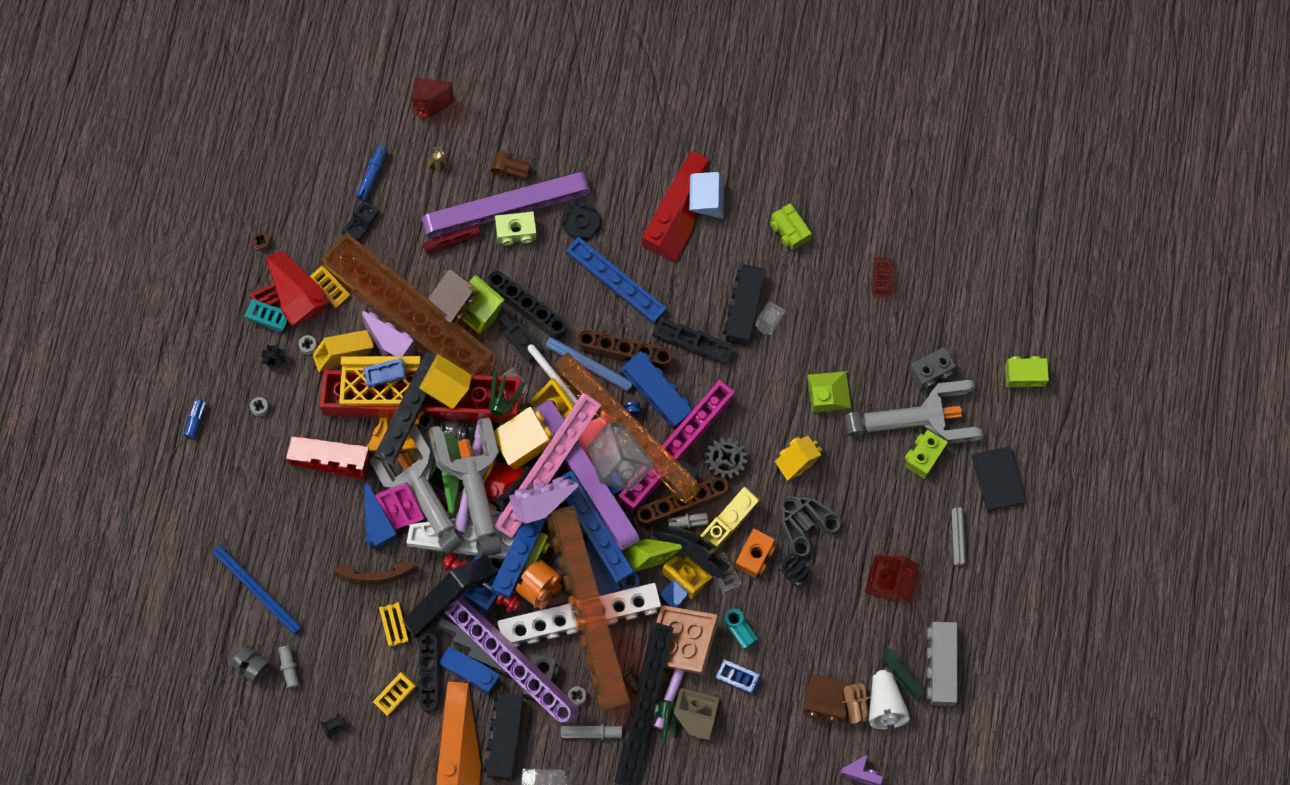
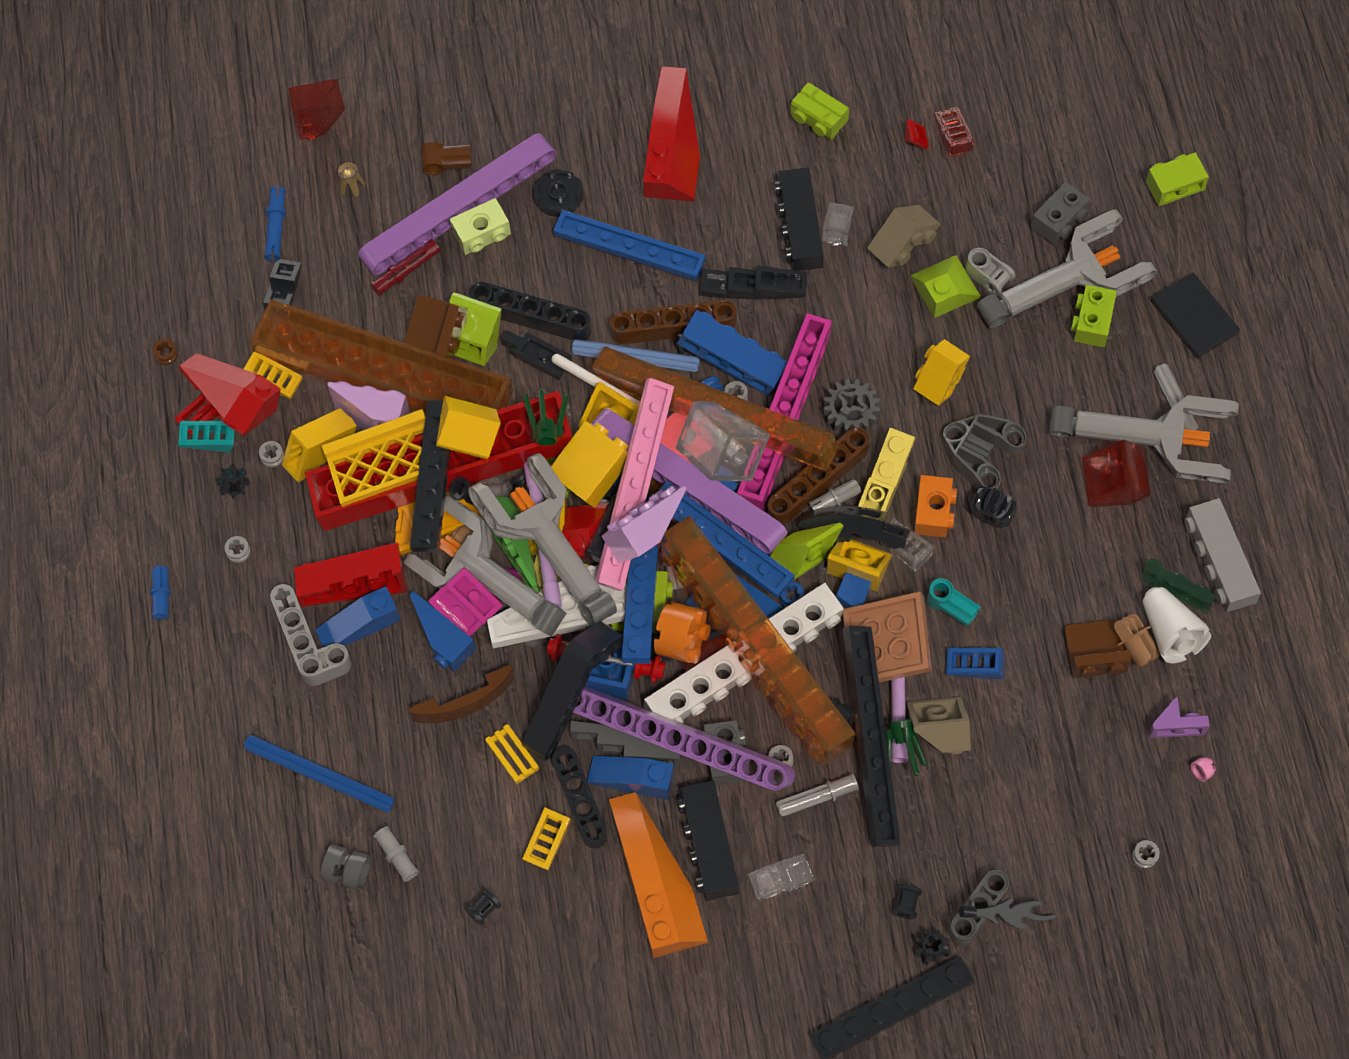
camera: 10 degrees left, 5 degrees down
(281, 484) = (301, 634): none -> light grey beam
(323, 490) = (360, 619): none -> blue slope
(385, 372) = (385, 444): plate -> none
(647, 413) = (737, 385): none -> light grey bush
(707, 194) = (701, 106): light blue slope -> none
(812, 343) = (901, 232): none -> dark tan brick
(854, 270) = (916, 134): none -> red slope
(866, 396) = (991, 274): none -> light grey piece
(938, 560) = (1164, 434): none -> light grey piece

